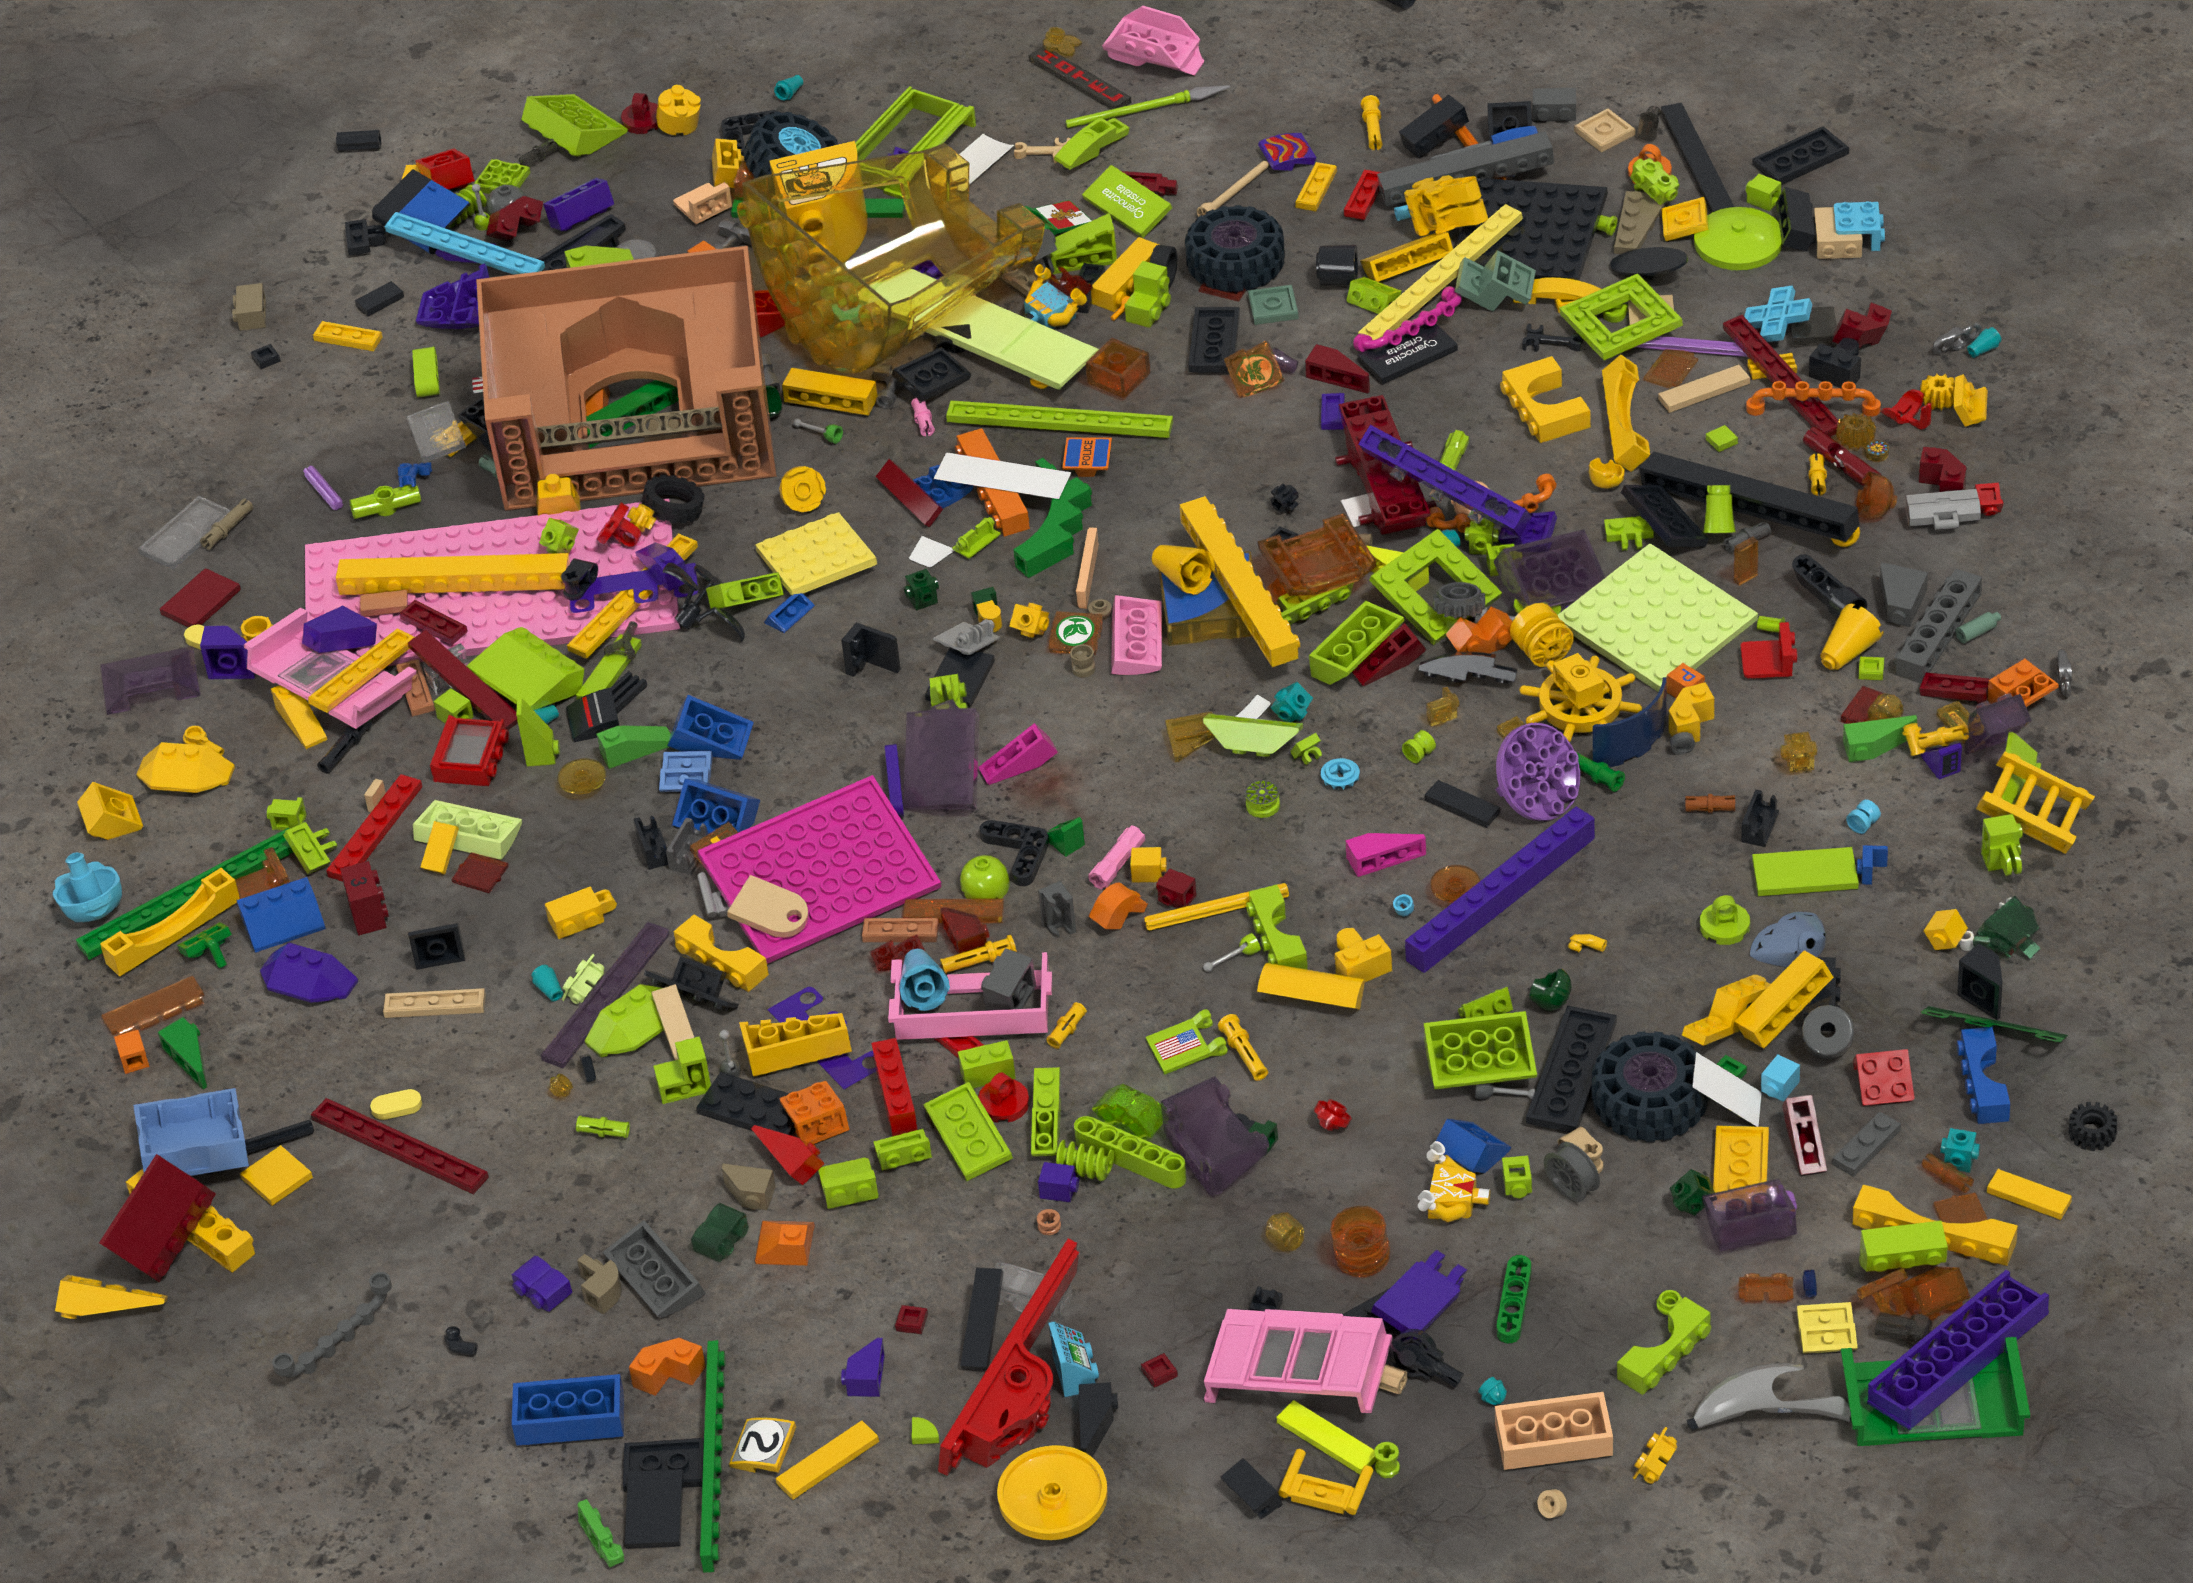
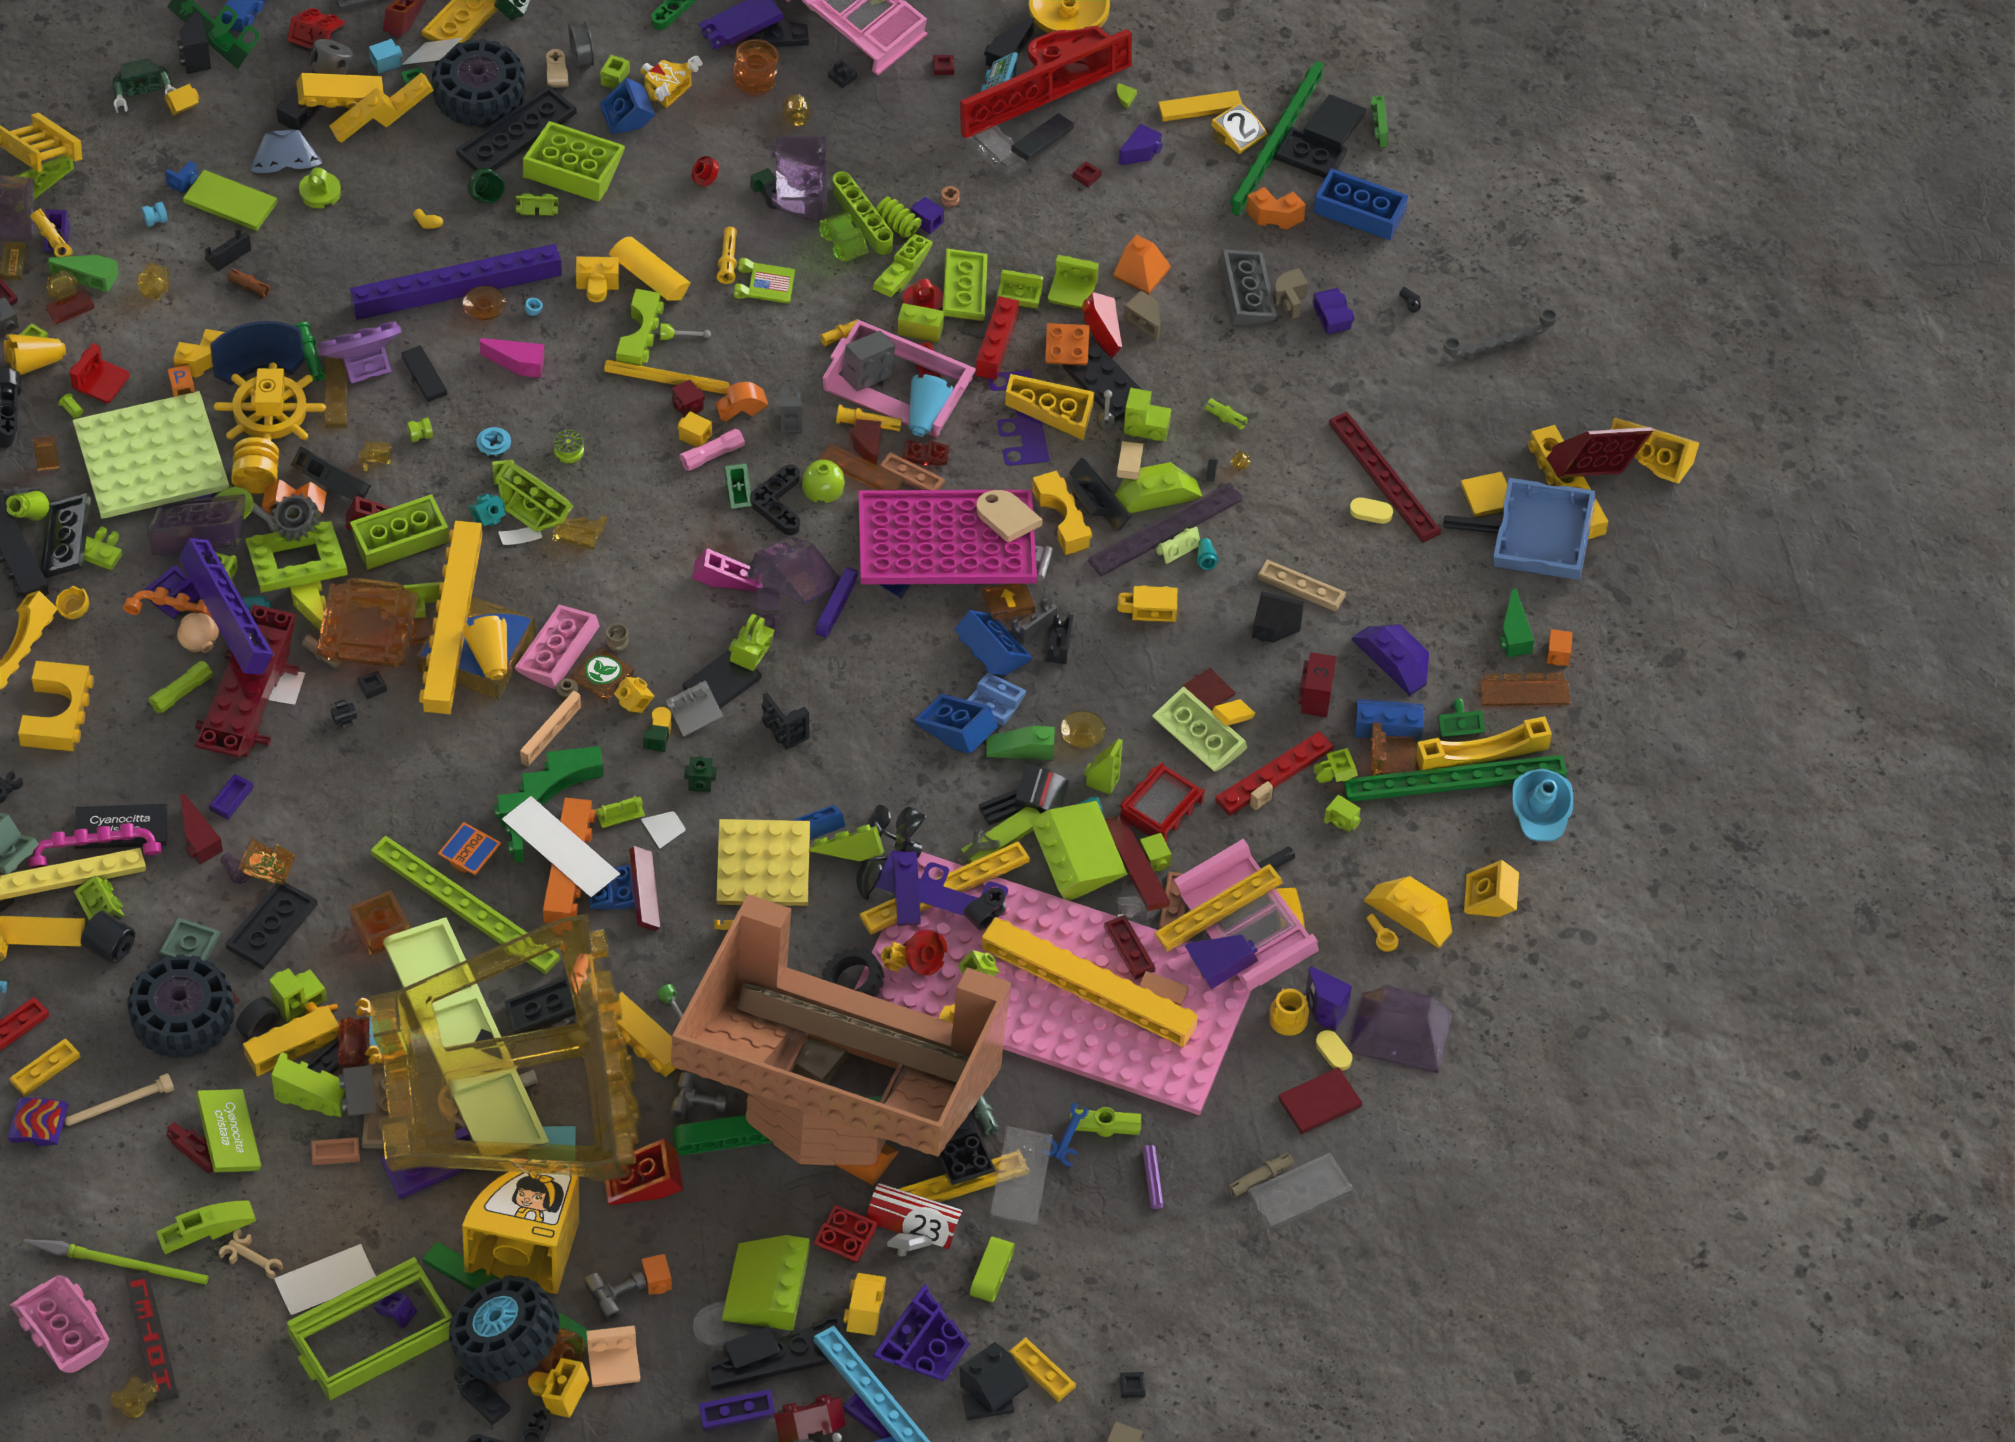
camera: 160 degrees left, 10 degrees up
(382, 301) = (992, 1377): none -> black slope
(719, 1232) = (1185, 290): clear green brick -> none
(1060, 216) = (299, 1150): flag -> none
(2001, 844) = (89, 130): lime brick -> none

